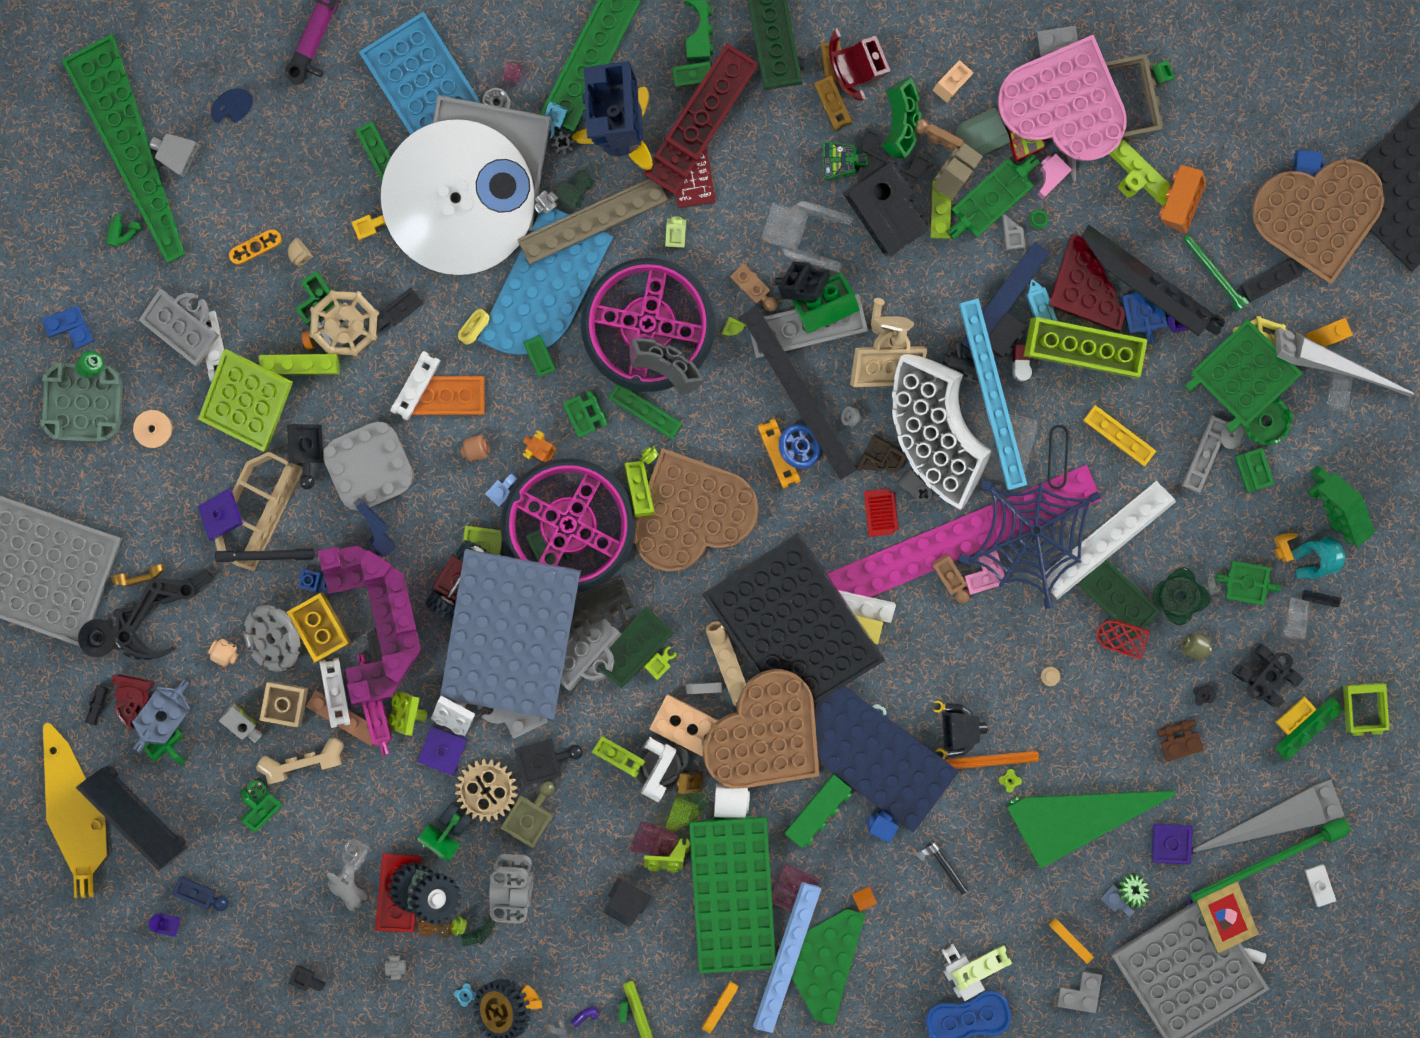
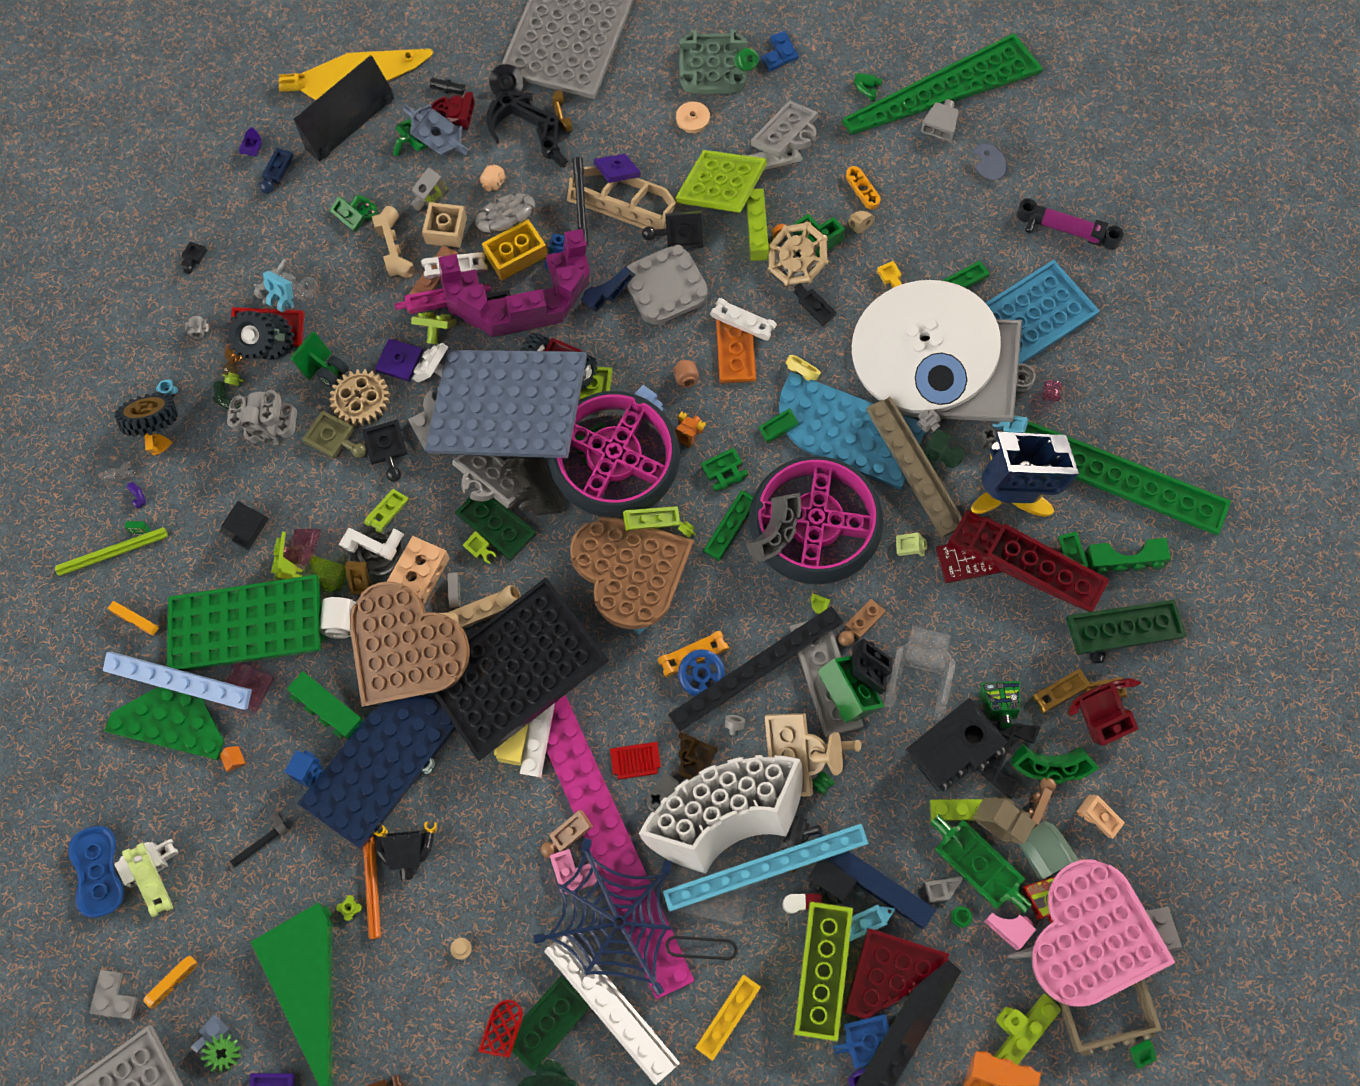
camera: 90 degrees right, 20 degrees down
(359, 879) = (279, 289): none -> medium azure plate
(913, 336) = (822, 783): none -> green wheel

